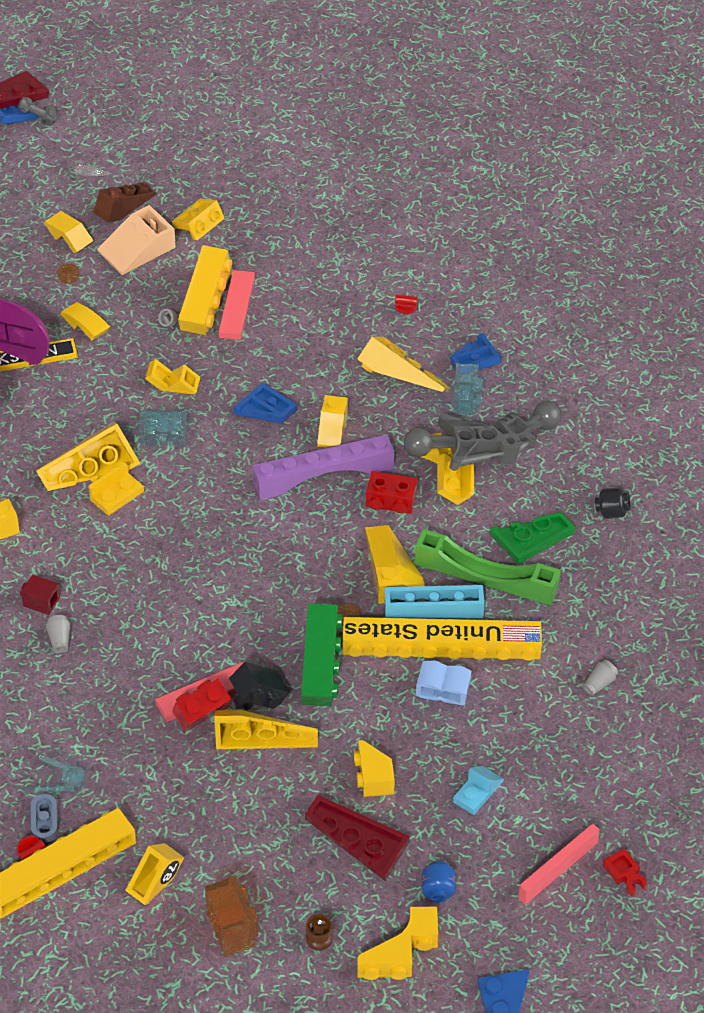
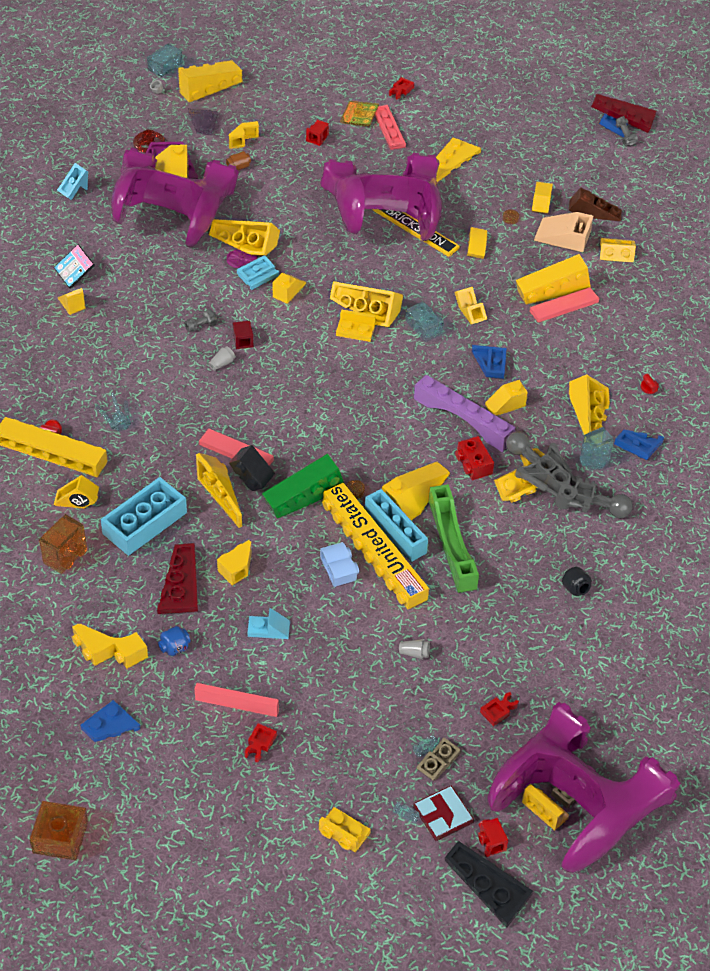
camera: 55 degrees right, 0 degrees up
(44, 819) = (79, 423): sand blue plate -> none
(88, 171) = (603, 181): clear bar -> none
(201, 705) = (211, 445): red brick -> none
(245, 821) = (144, 516): none -> medium azure brick
(319, 932) = (89, 597): reddish brown wheel -> none
(531, 538) = (504, 551): green wing -> none

